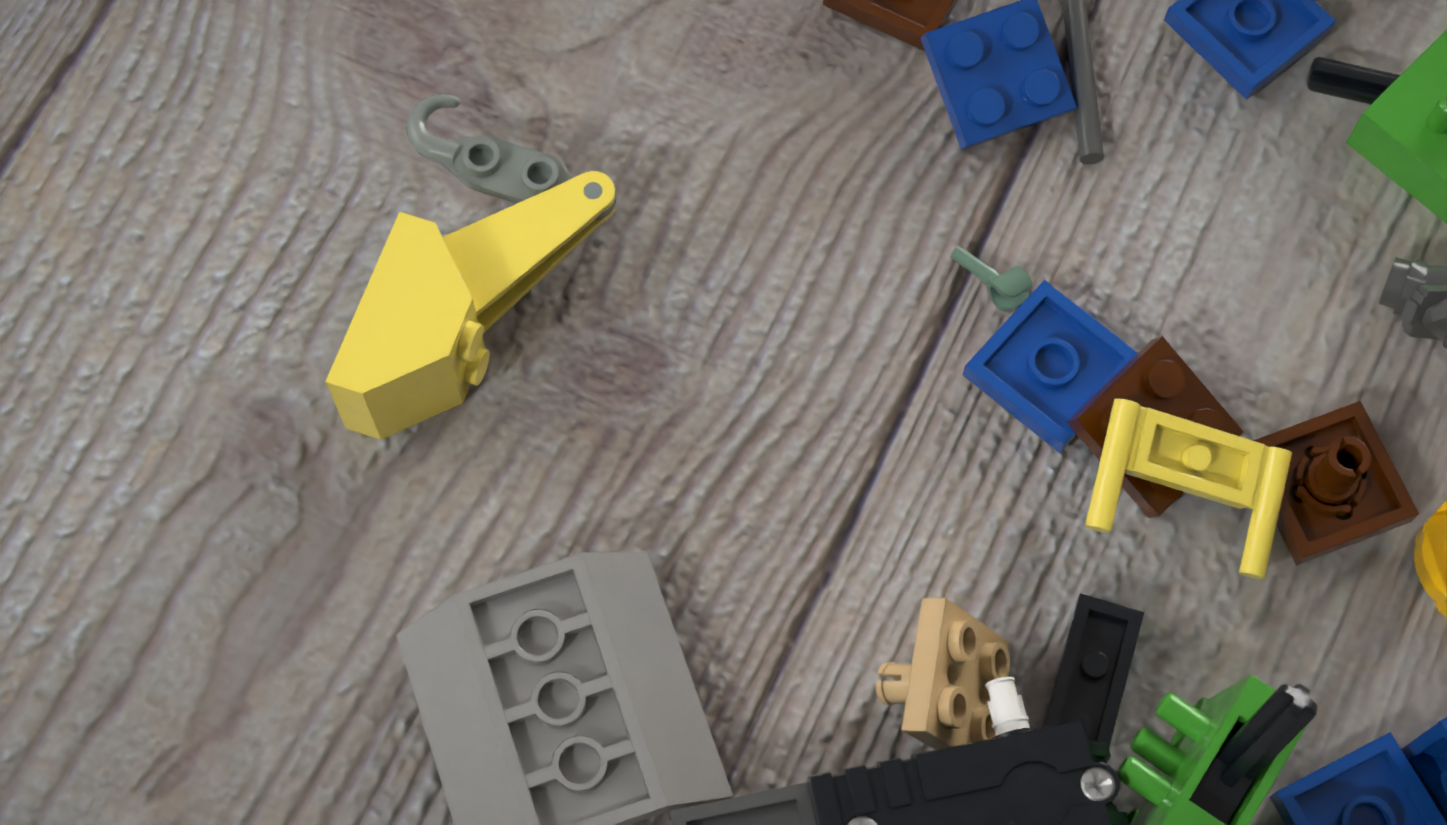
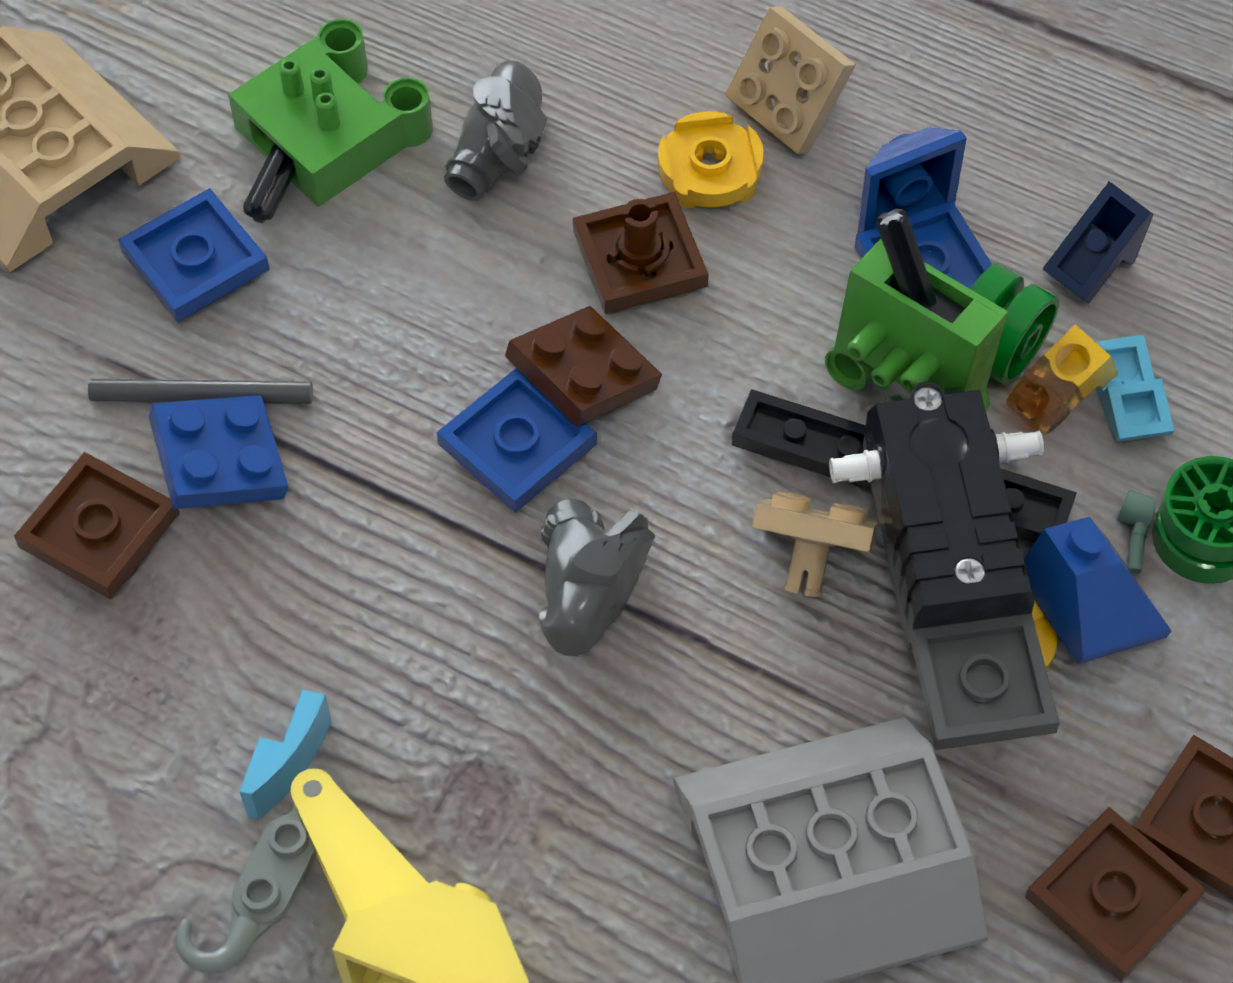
camera: 85 degrees left, 10 degrees down
(634, 171) = (278, 763): none -> medium azure slope
(878, 446) = (588, 572): none -> dark grey animal
(1006, 289) = (435, 472): sand green hand -> none
(1195, 462) = (628, 327): light yellow plate -> none

